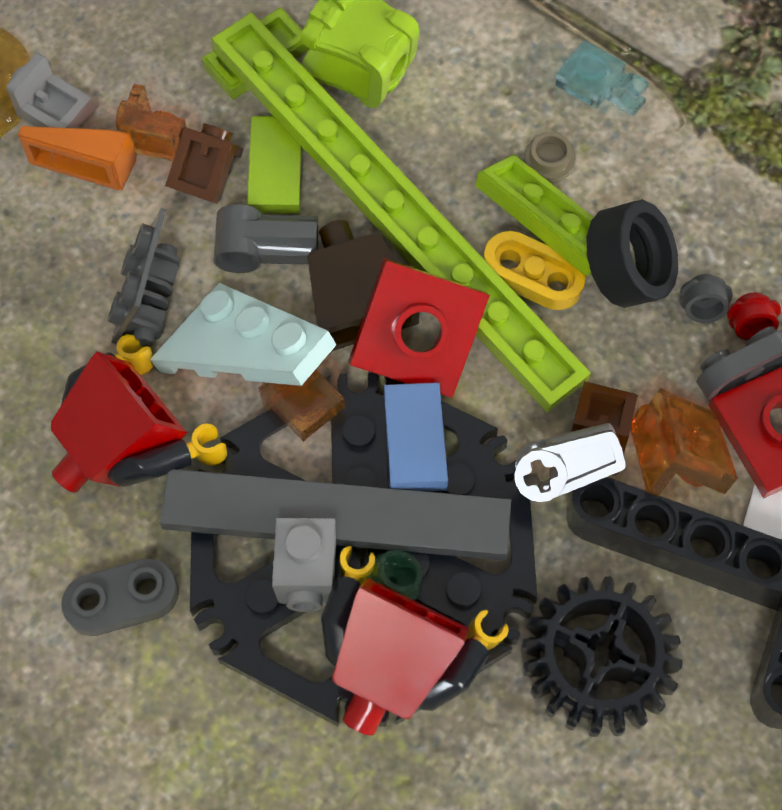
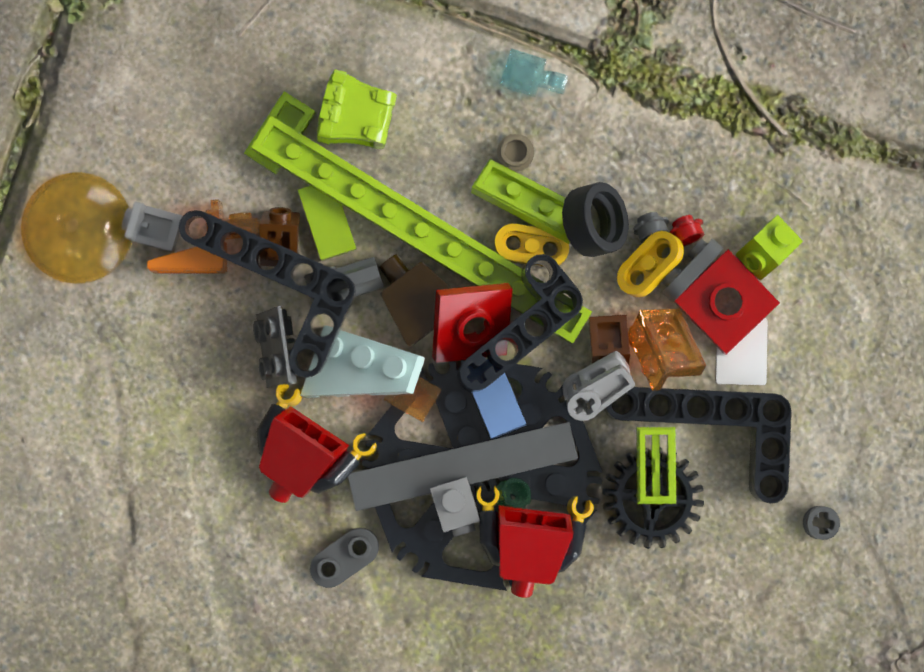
camera: 20 degrees left, 20 degrees up
(186, 182) = (283, 274): none -> black beam
(473, 349) = (516, 333): none -> black beam
(608, 645) = (655, 433): none -> lime tile
(691, 337) = (649, 261): none -> yellow plate

